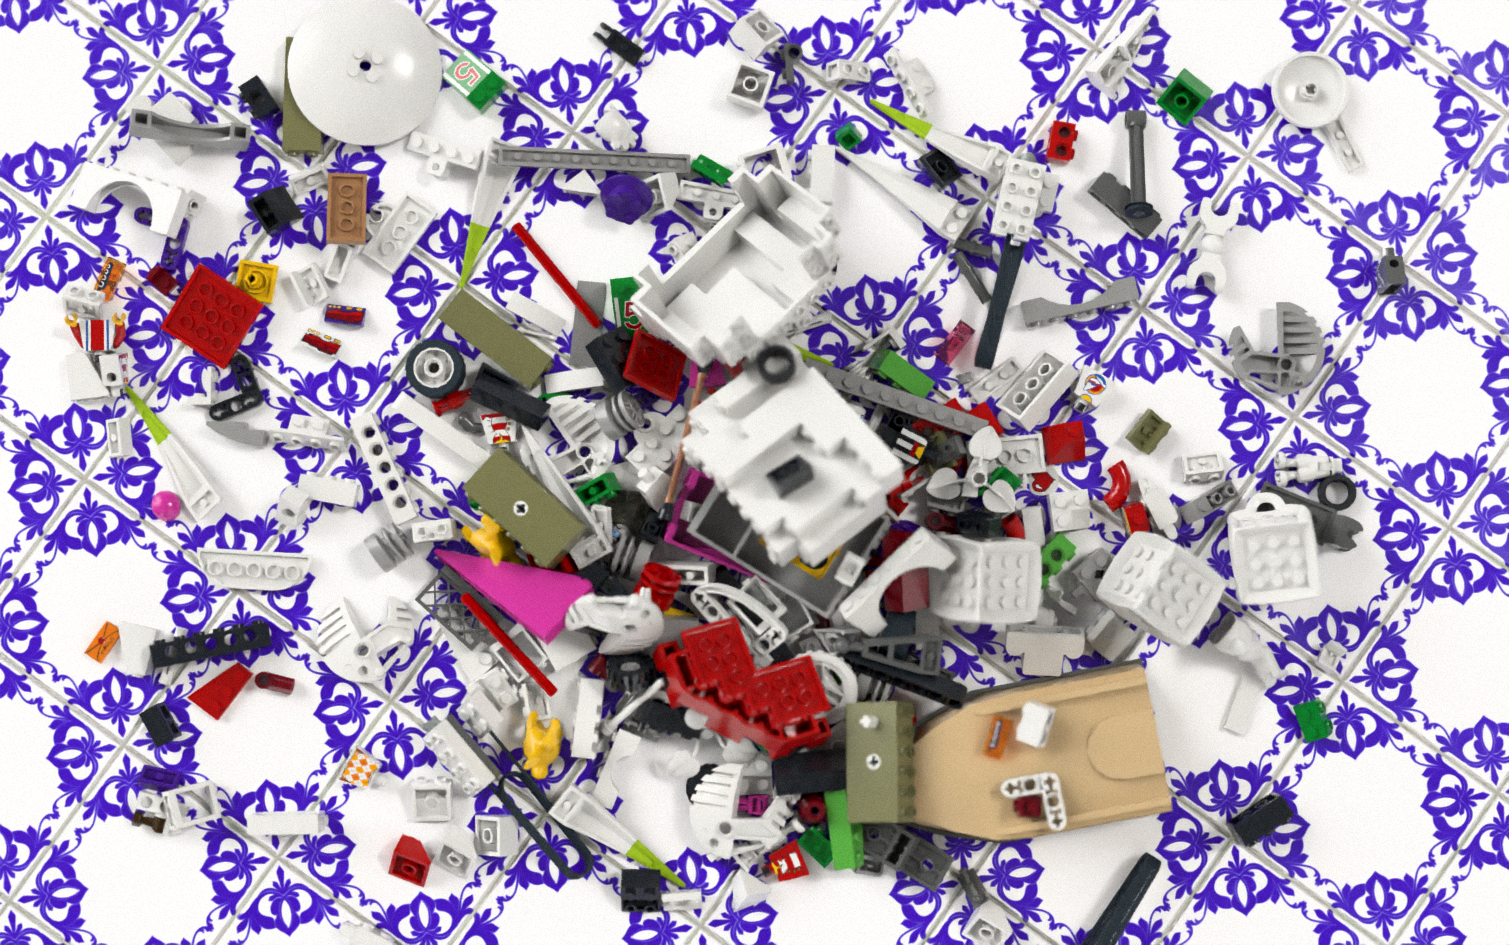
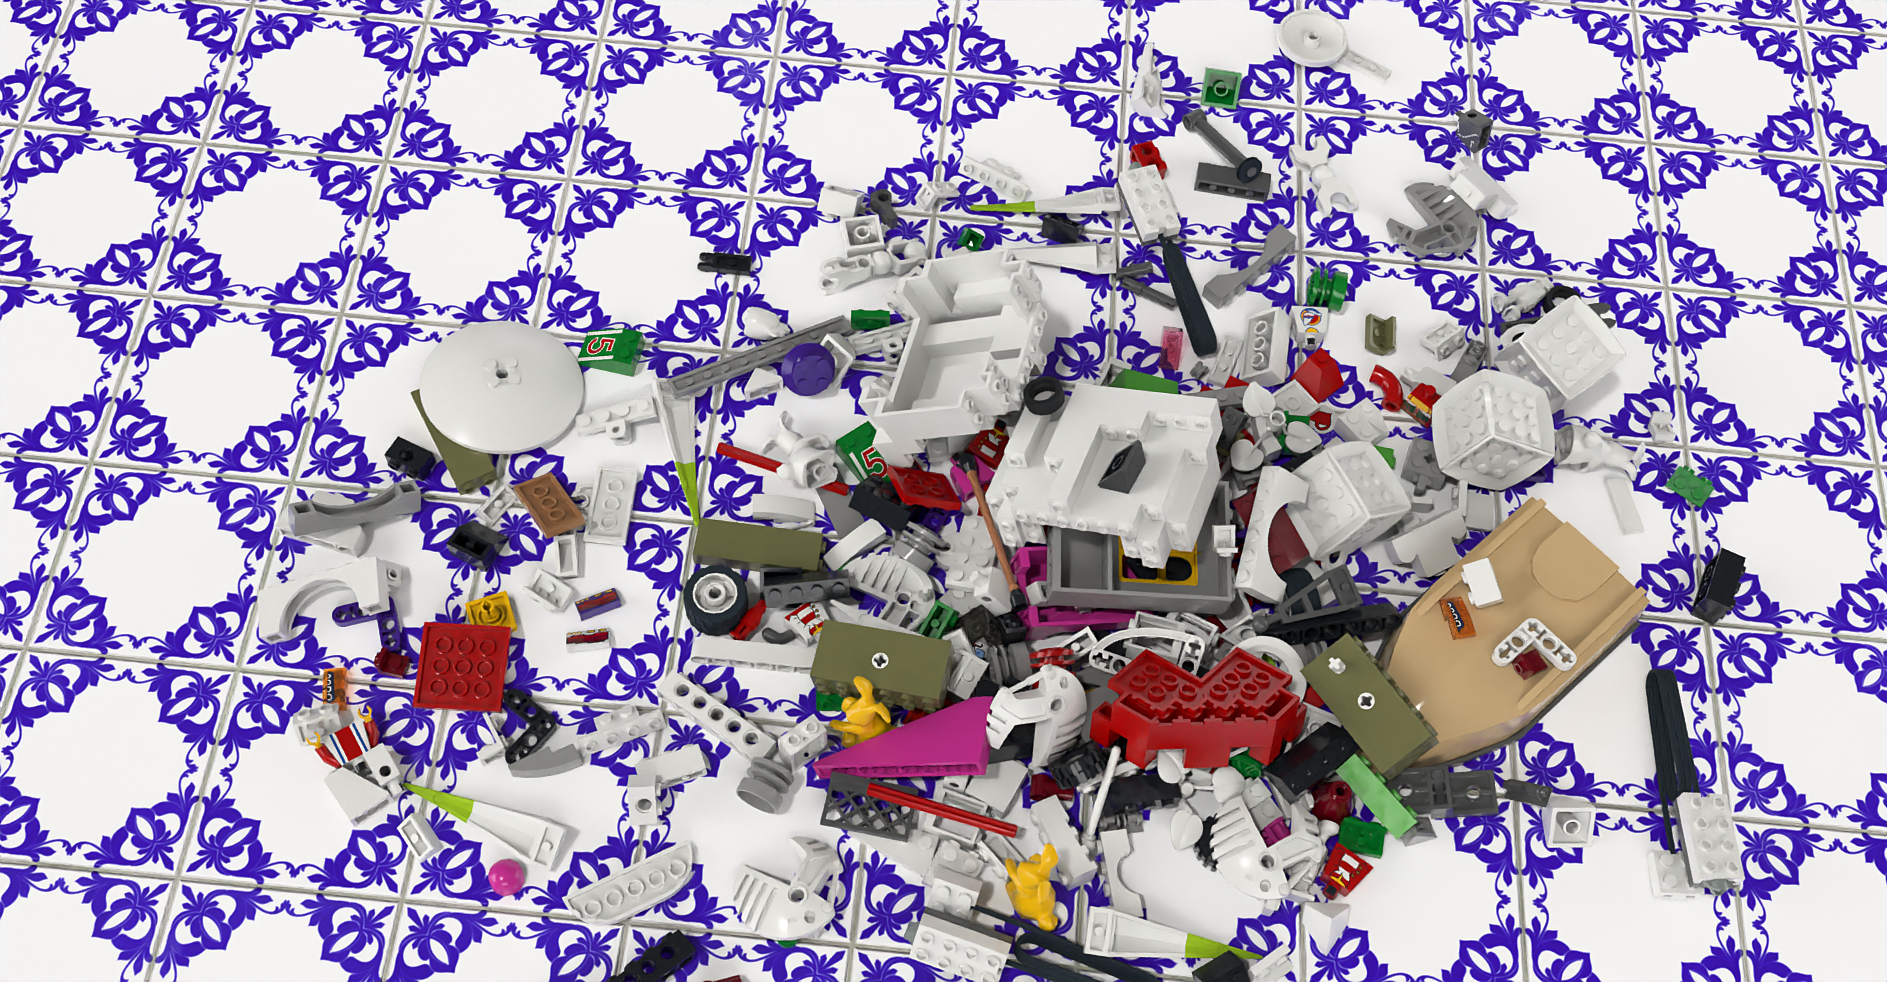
camera: 30 degrees left, 25 degrees down
(569, 290) = (806, 464): none -> white animal
(749, 119) = (880, 262): none -> white piece
(1128, 365) = (1327, 289): none -> green wheel
(1347, 340) = (1480, 189): none -> white brick

